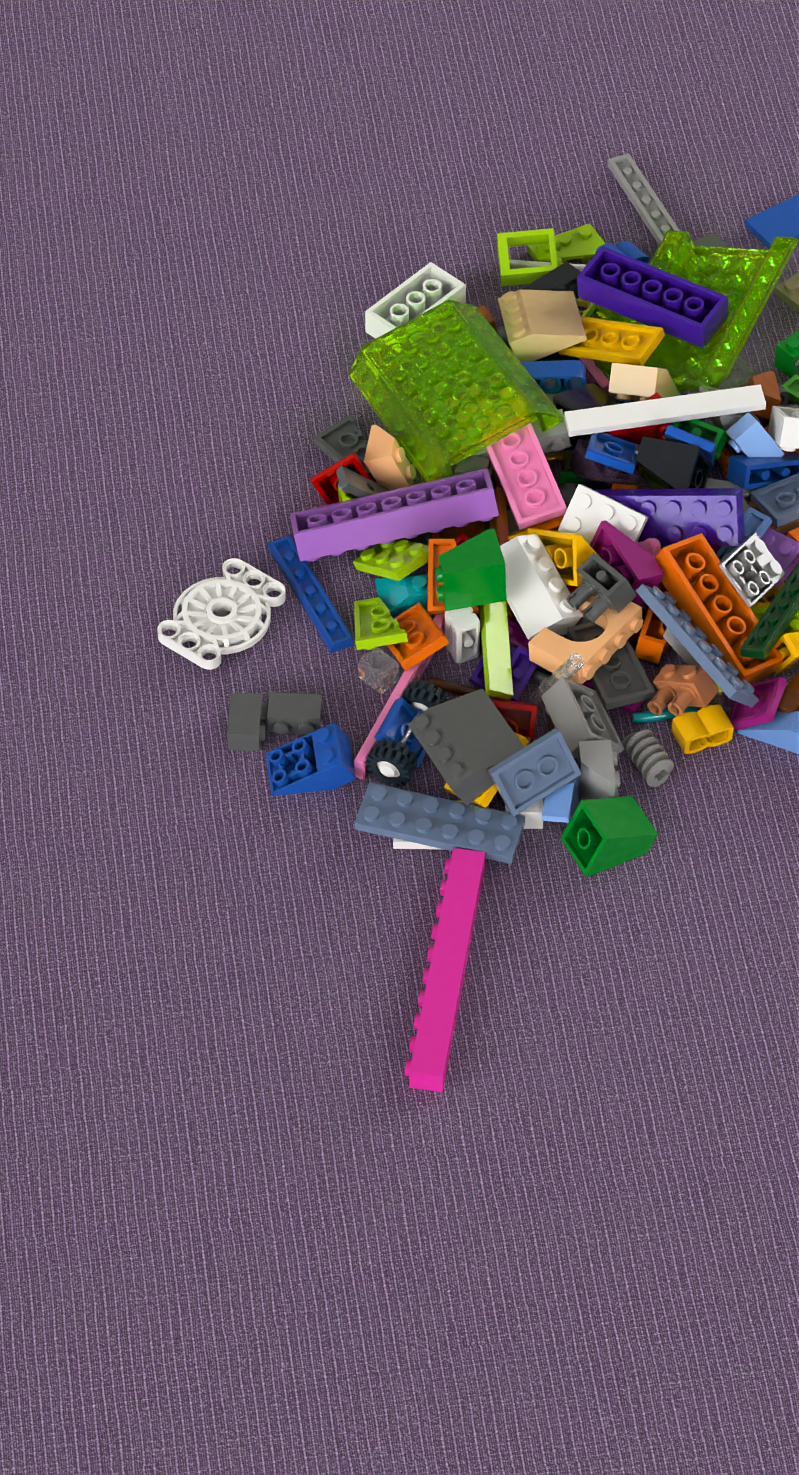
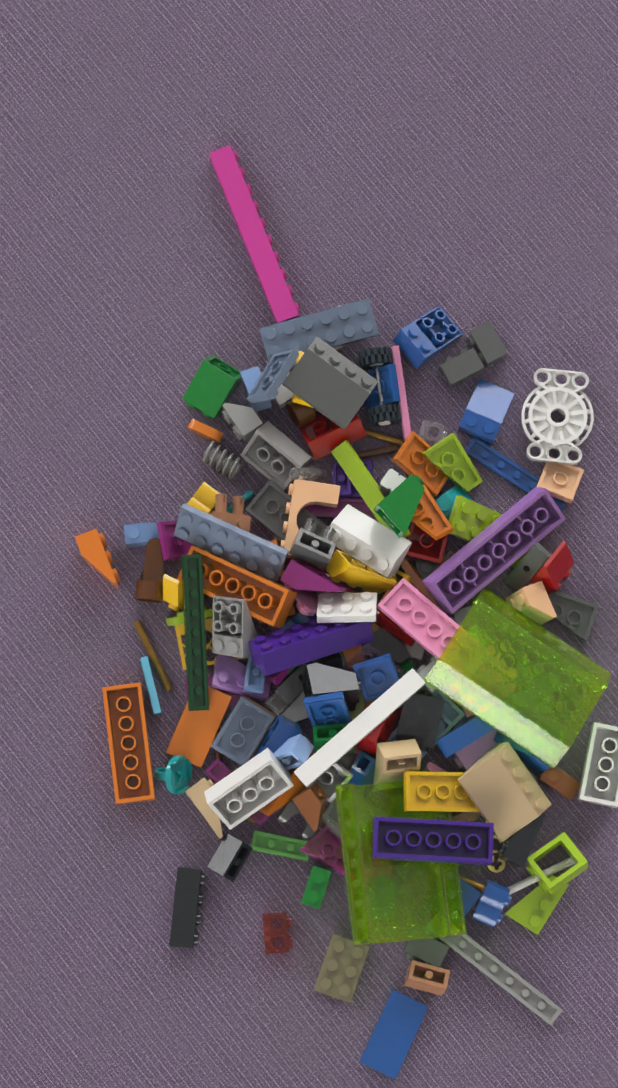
camera: 150 degrees right, 30 degrees up
(269, 557) = (560, 480): none -> light nougat tile
(301, 659) = (485, 411): none -> slope
(649, 798) = (205, 431): none -> orange beam
(732, 230) = (427, 978): none -> nougat brick
(762, 360) = (327, 849): none -> magenta wing

